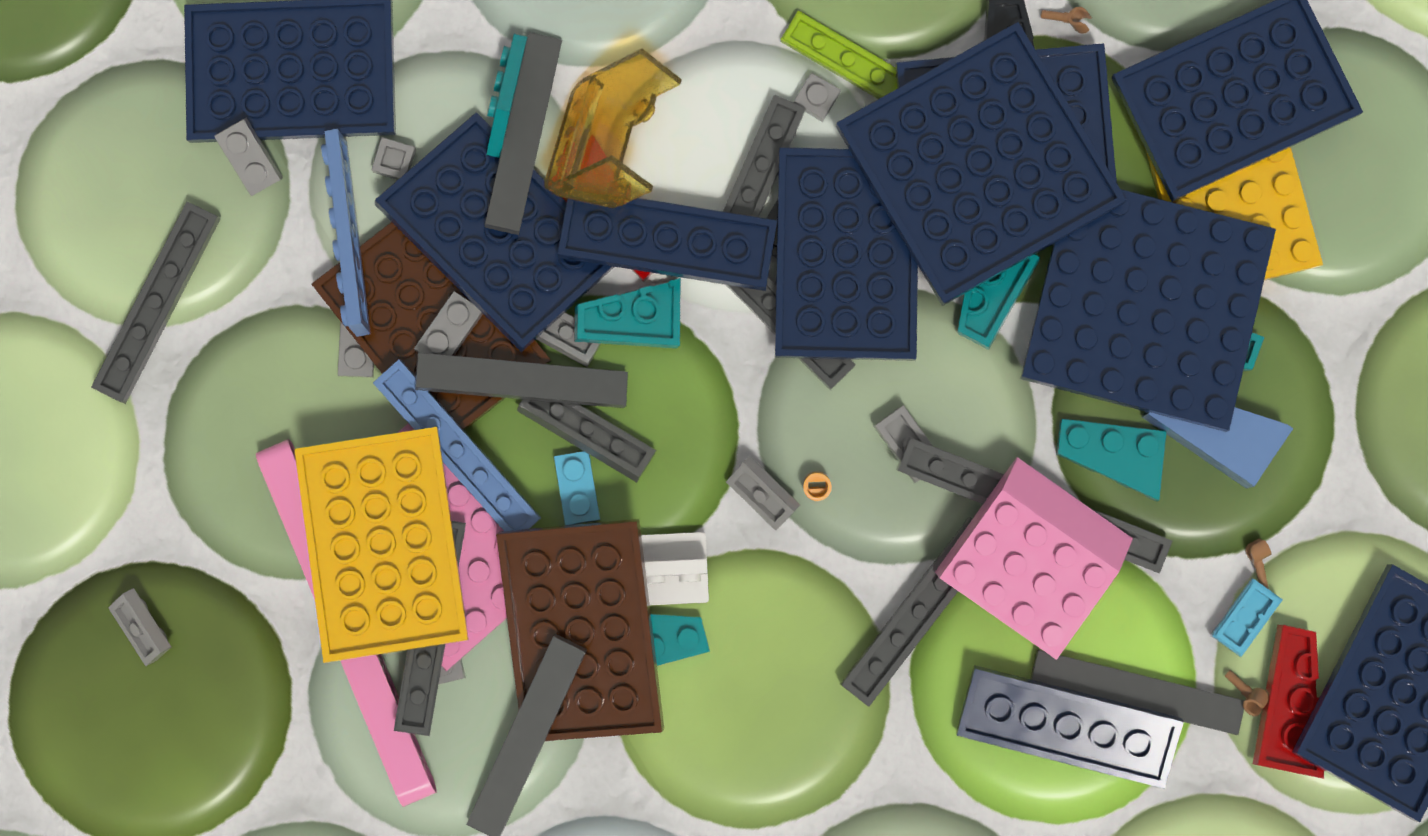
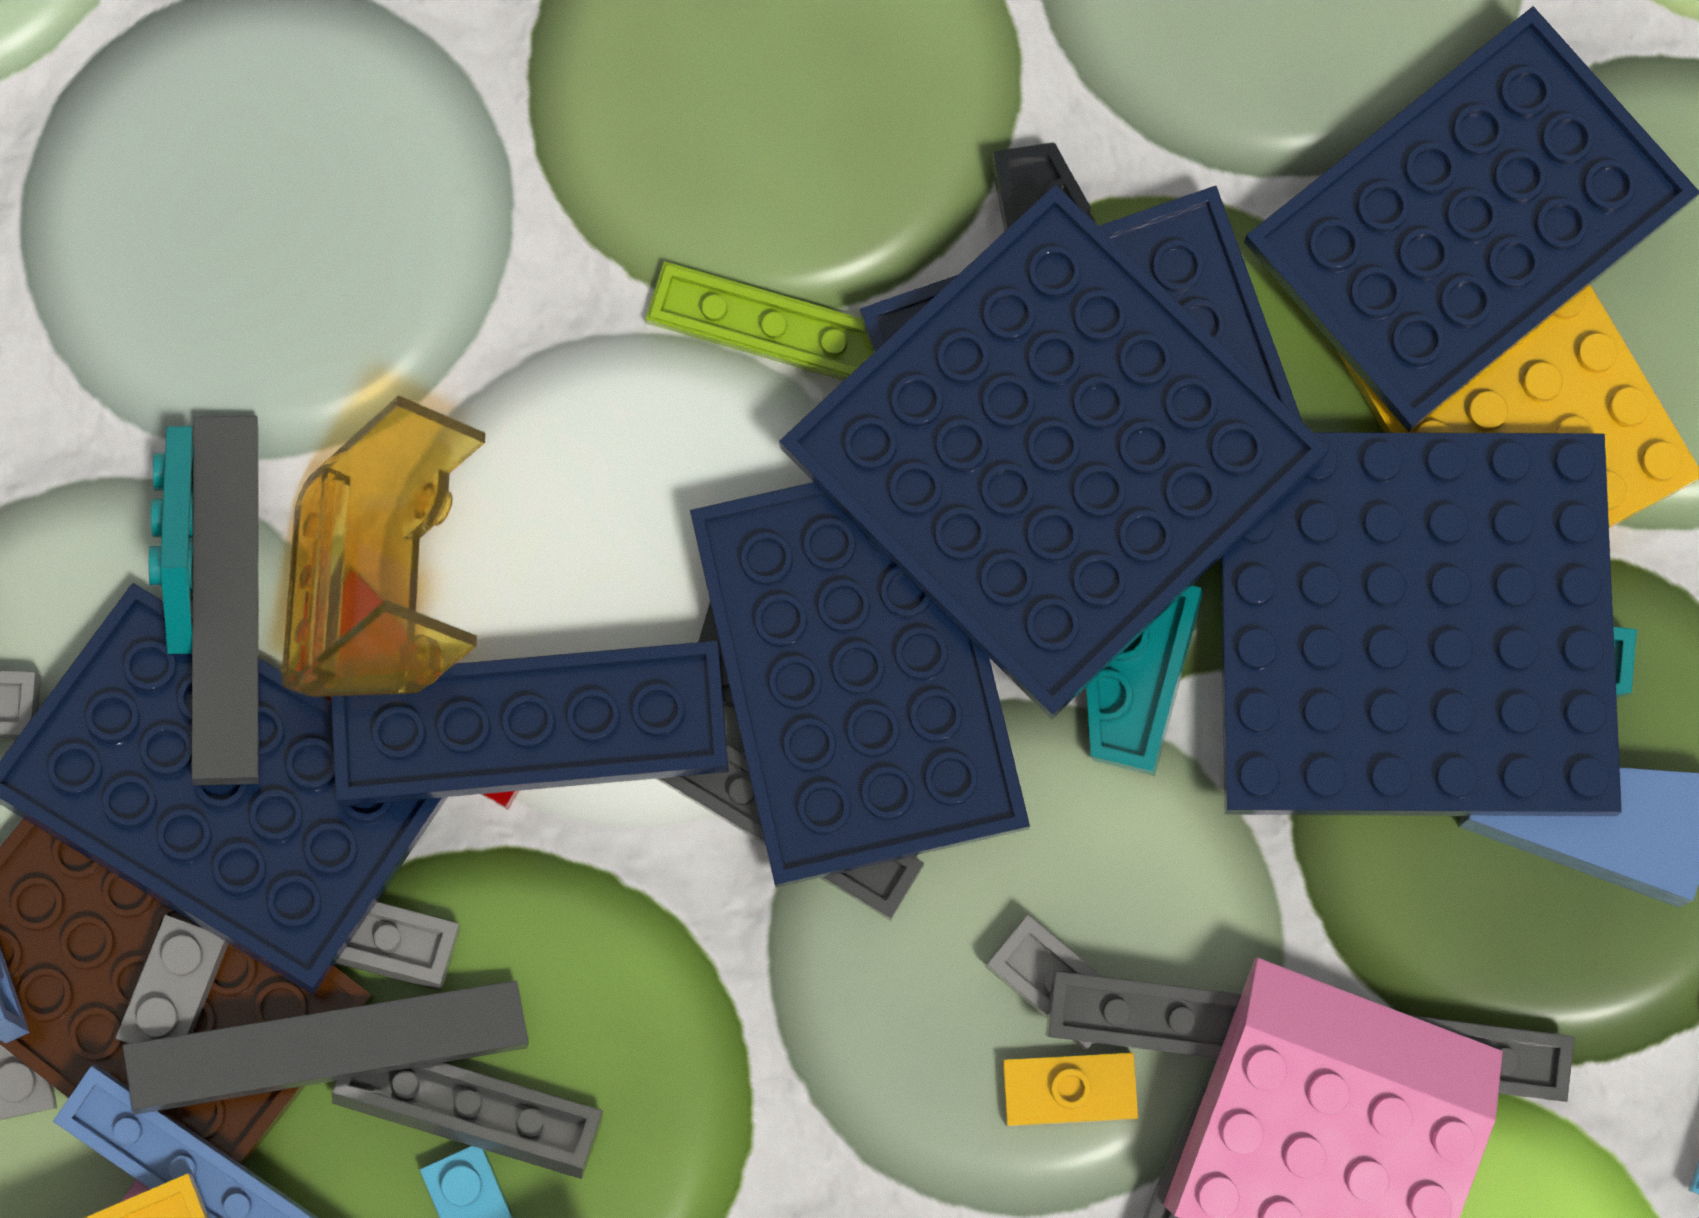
camera: 15 degrees left, 5 degrees down
(635, 318) = (507, 881): teal wing -> none
(762, 493) = (815, 1139): light grey plate -> none
(763, 158) = (666, 543): dark grey plate -> none
(817, 97) = (735, 405): light grey plate -> none
(817, 493) = (913, 1113): light orange hinge -> none
(901, 501) = (1070, 1089): none -> yellow plate
(1072, 17) = (1148, 155): medium nougat hand -> none
(1117, 452) = (1430, 901): teal wing -> none

